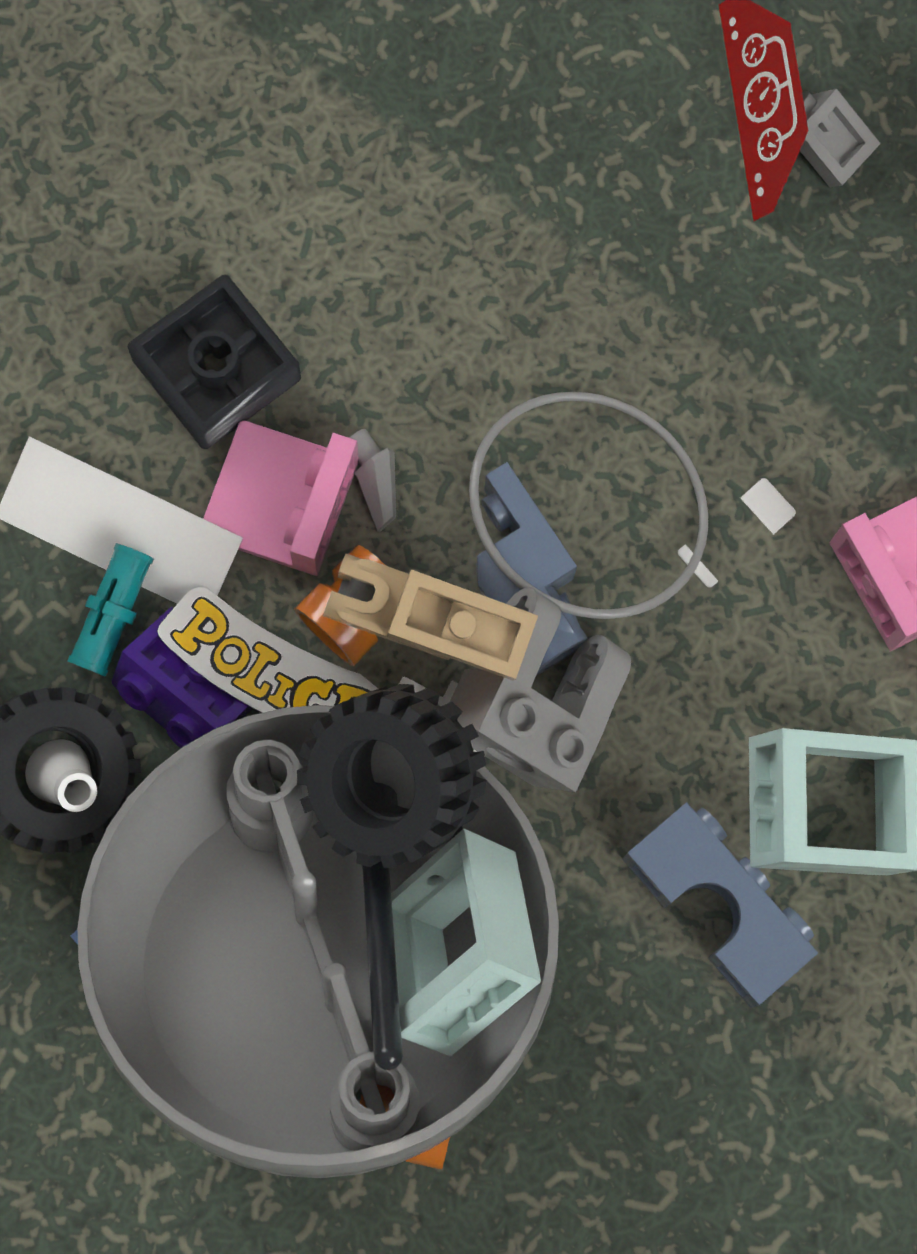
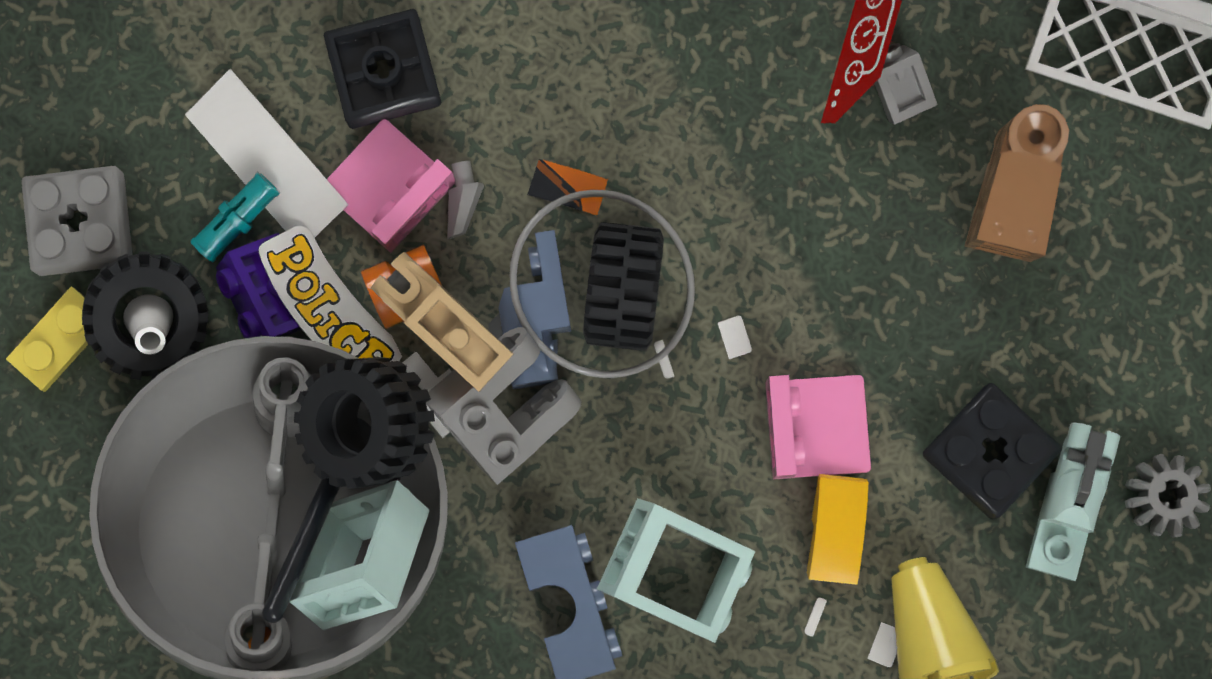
camera: 30 degrees right, 5 degrees up
(475, 412) = (556, 181): none -> sticker
(622, 491) = (623, 286): none -> black tyre

